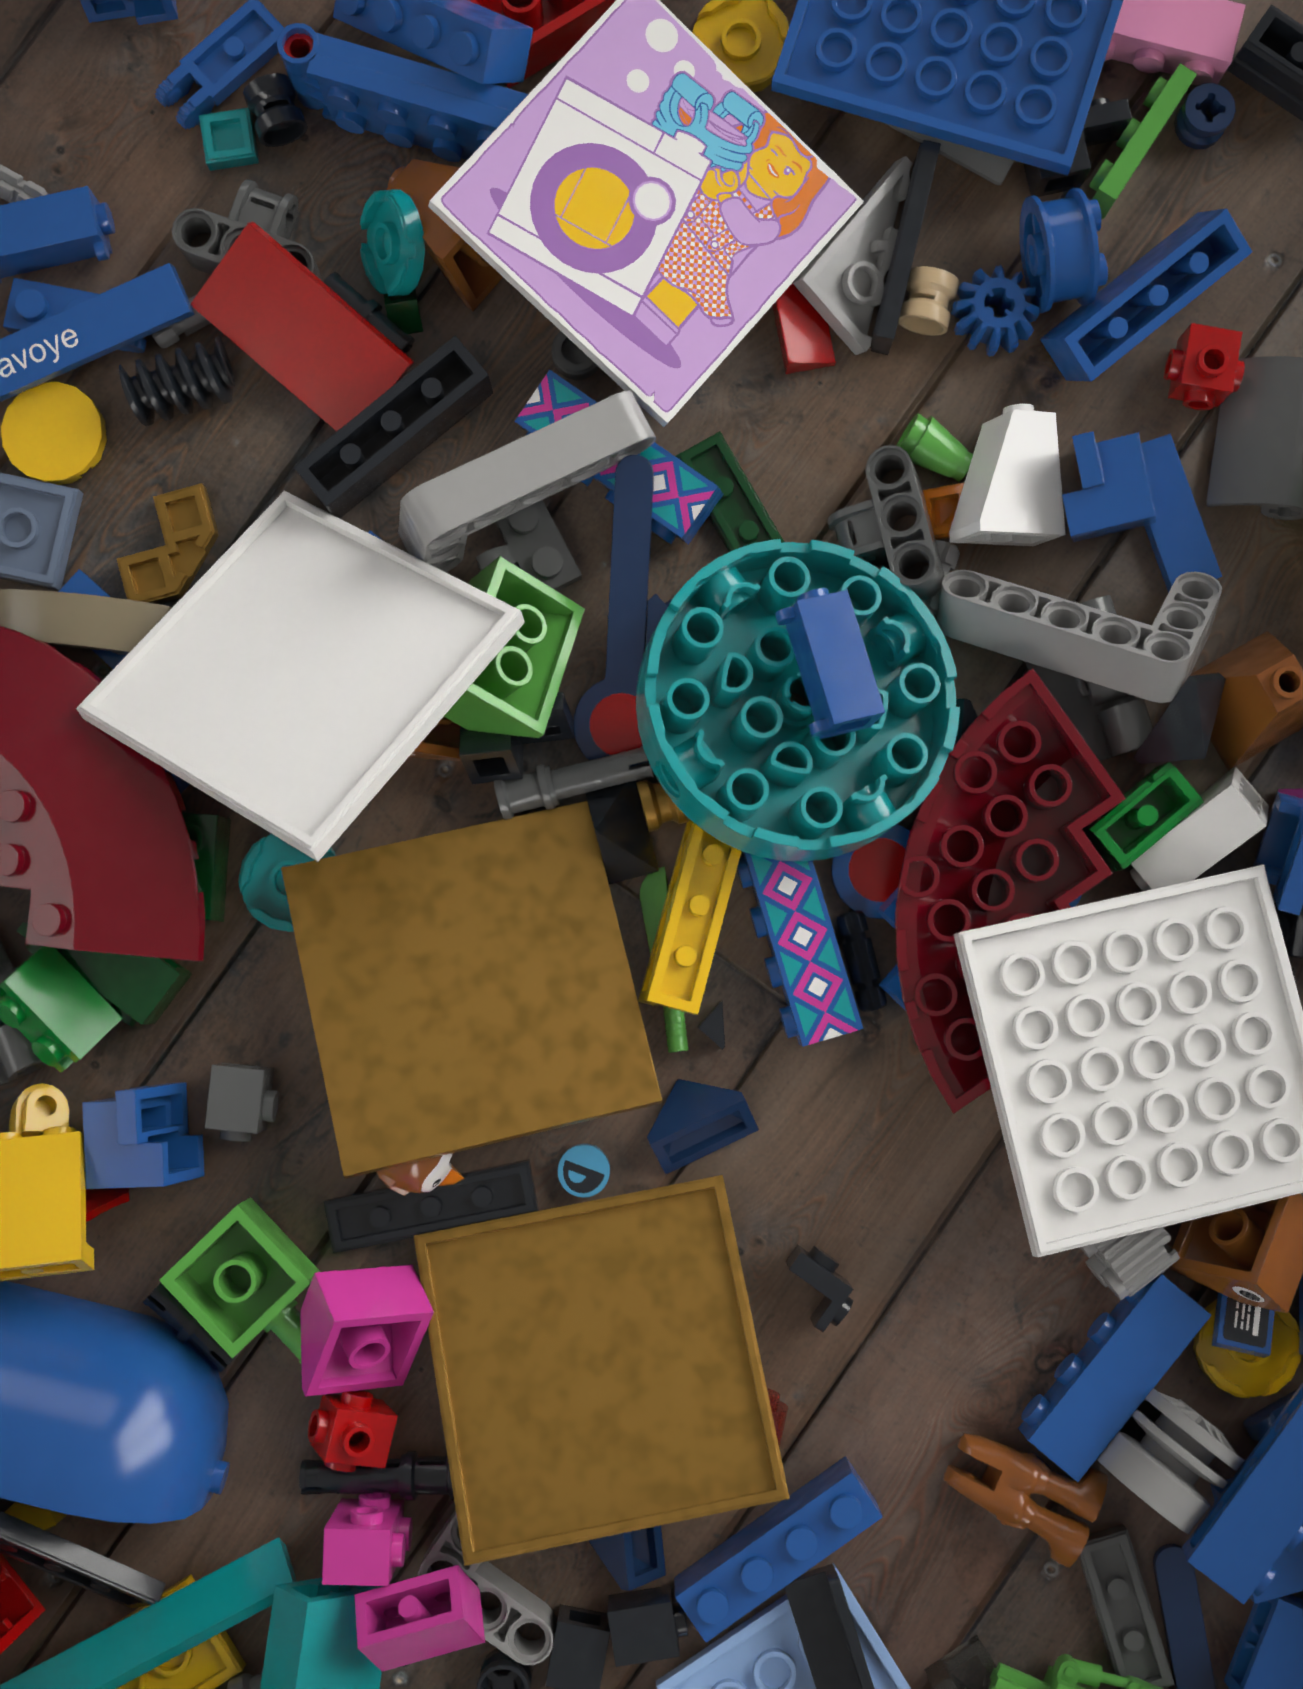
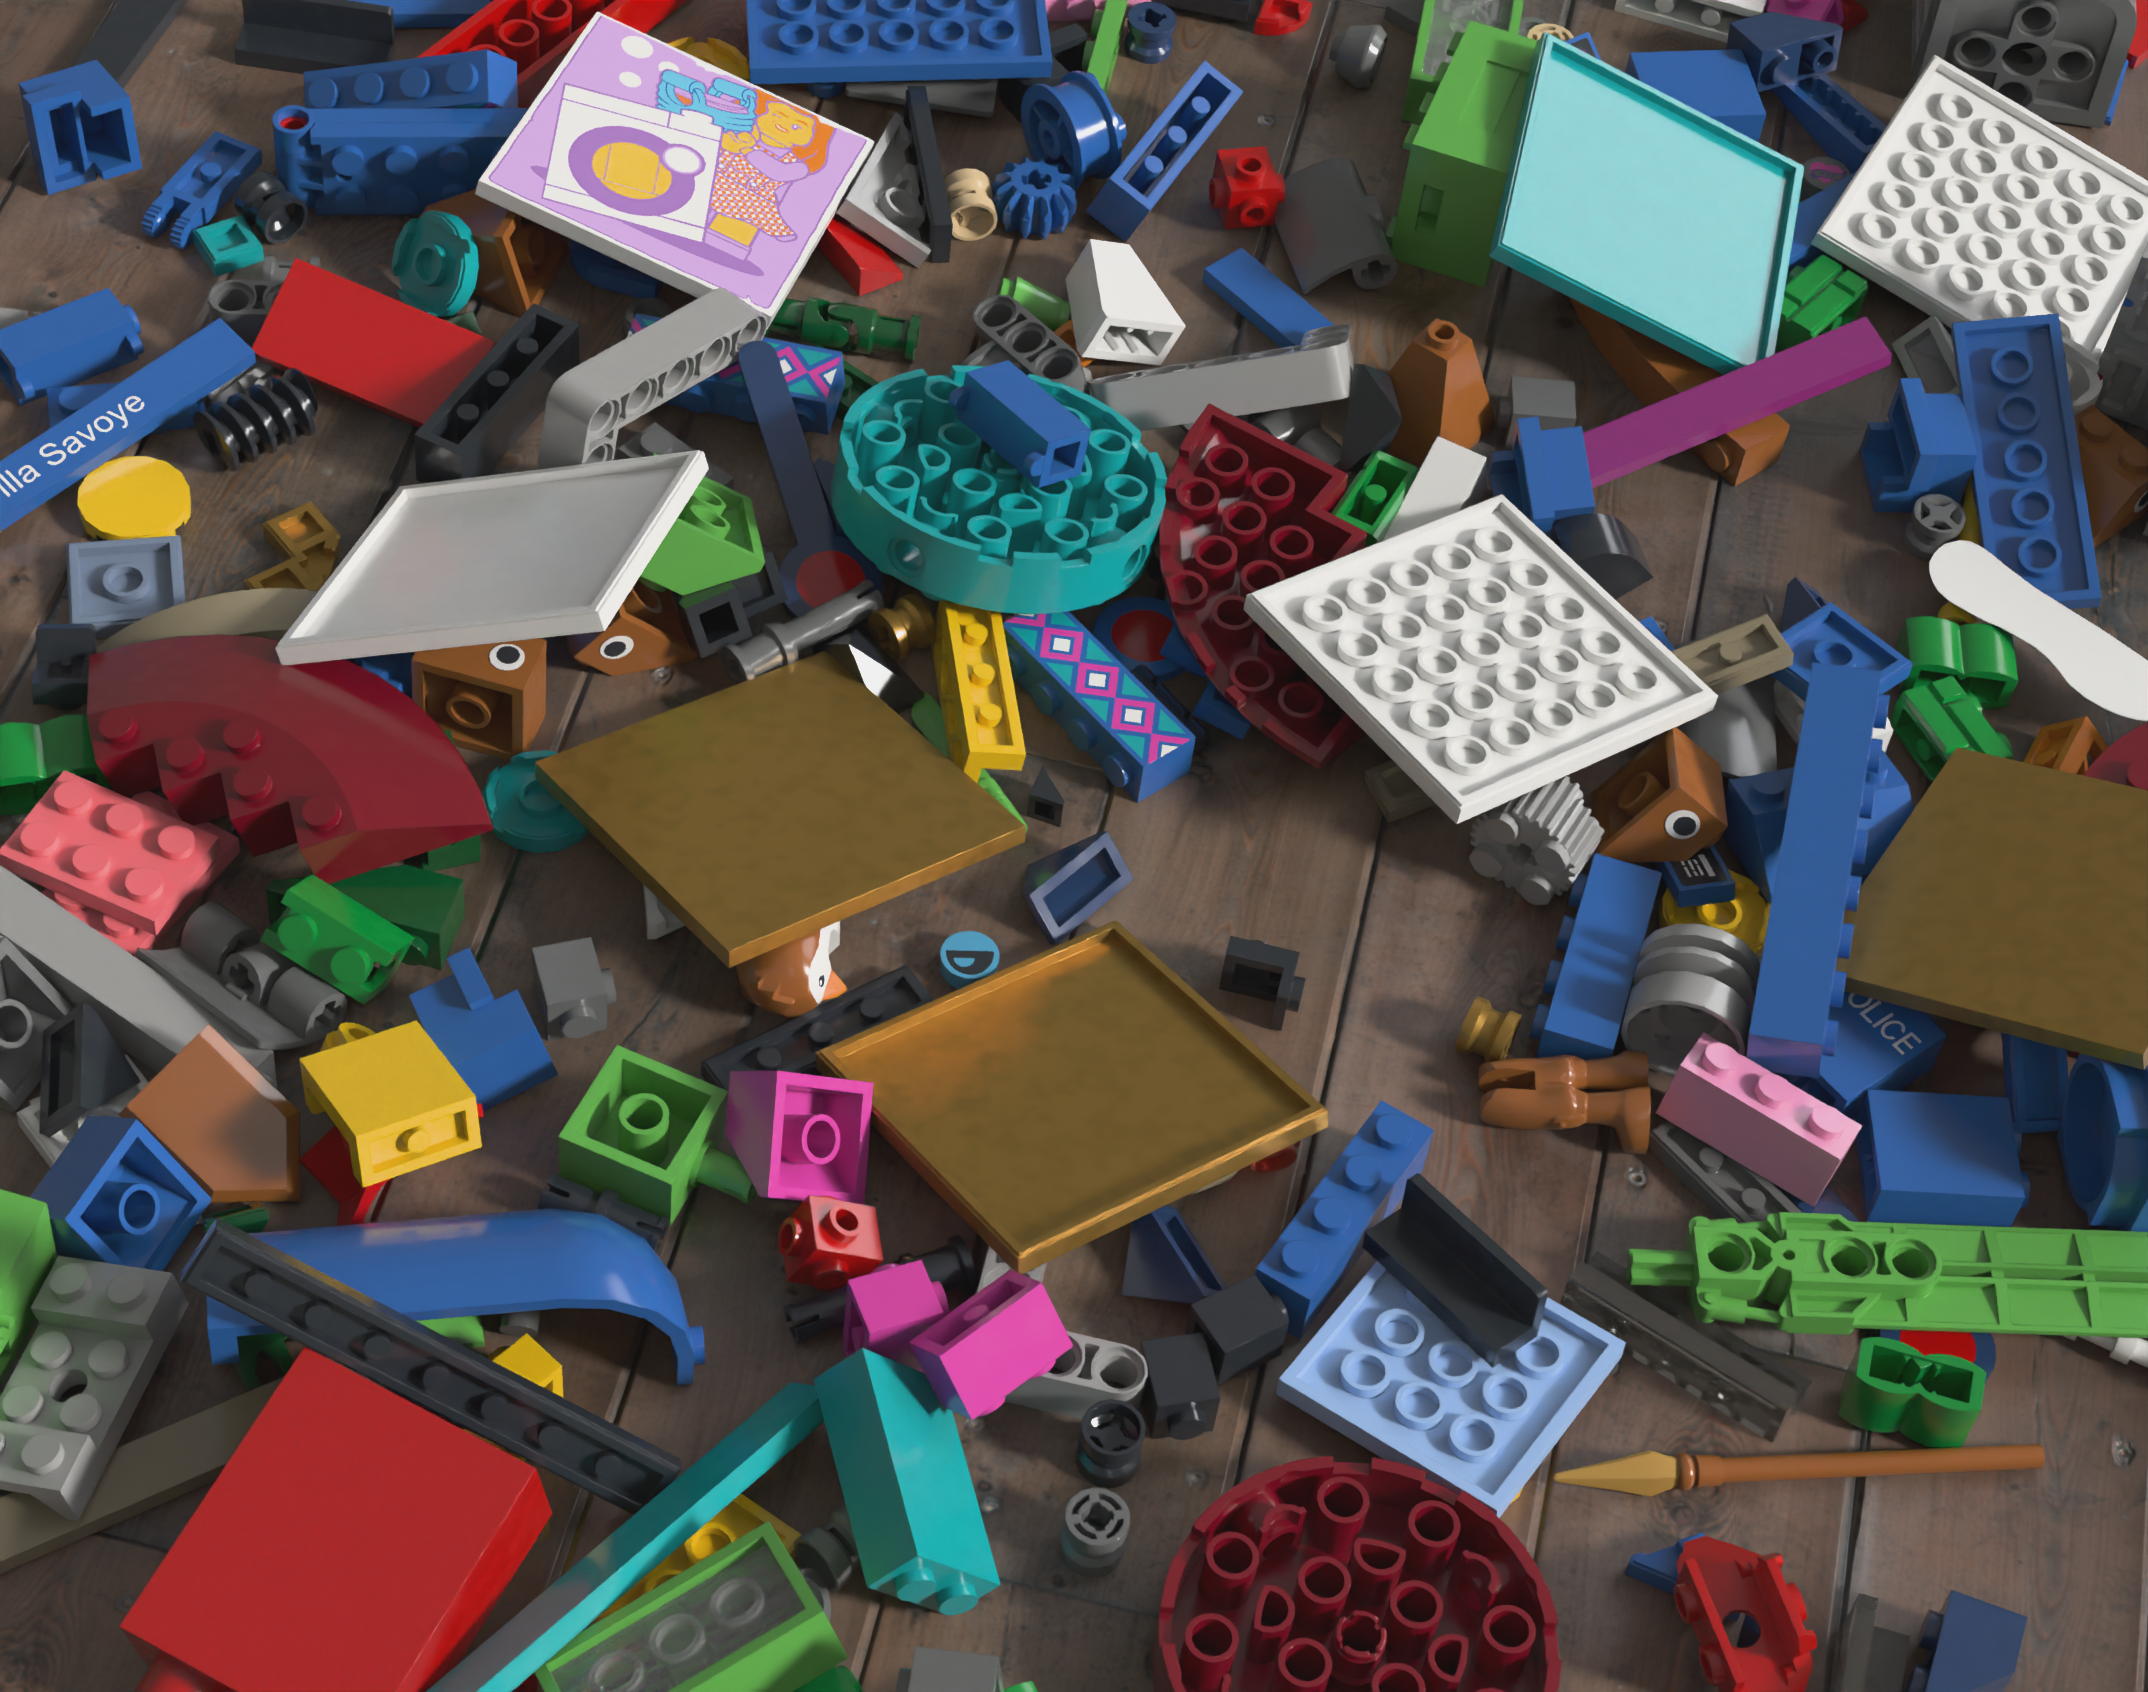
camera: 30 degrees left, 35 degrees down
(755, 424) = (830, 324): none -> dark green piece
(986, 1405) = (1487, 1031): none -> pearl gold wheel
(1114, 487) = (1208, 278): blue plate -> none
(1170, 1593) = (1758, 1119): none -> bright pink brick

